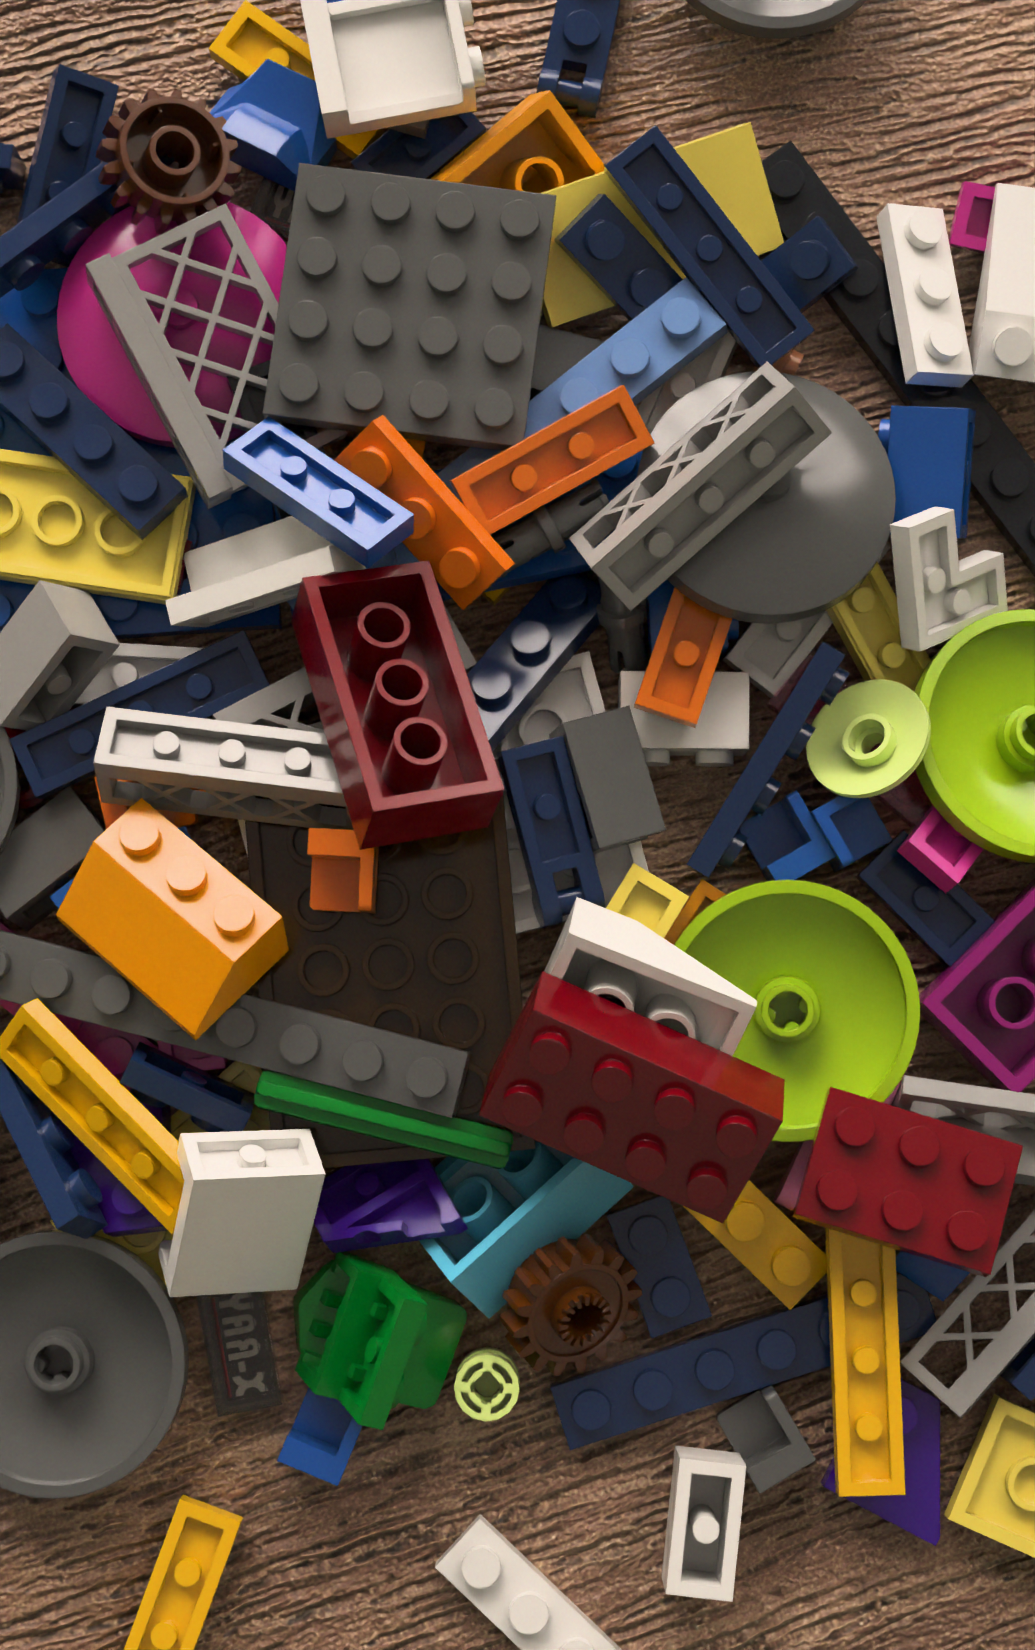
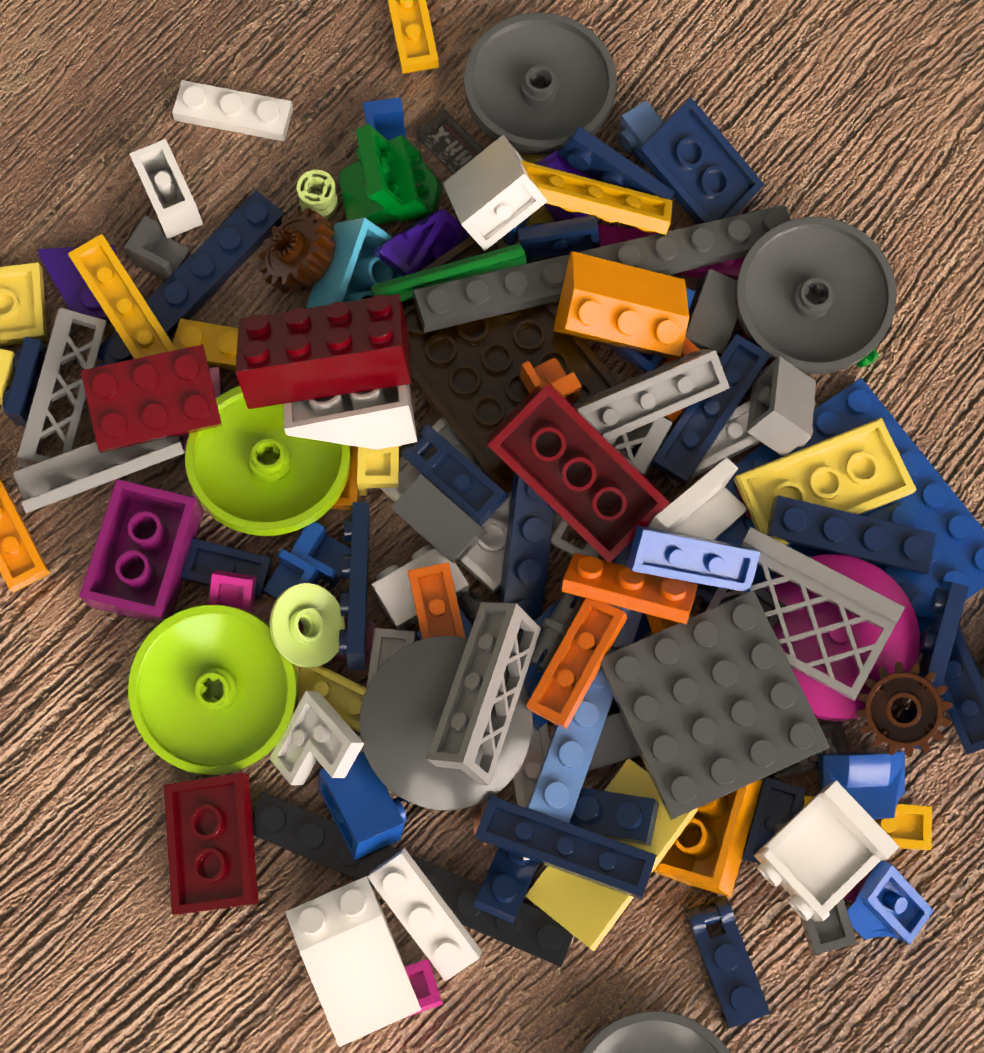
camera: 145 degrees right, 10 degrees down
(656, 1248) = (254, 296): dark blue plate -> none

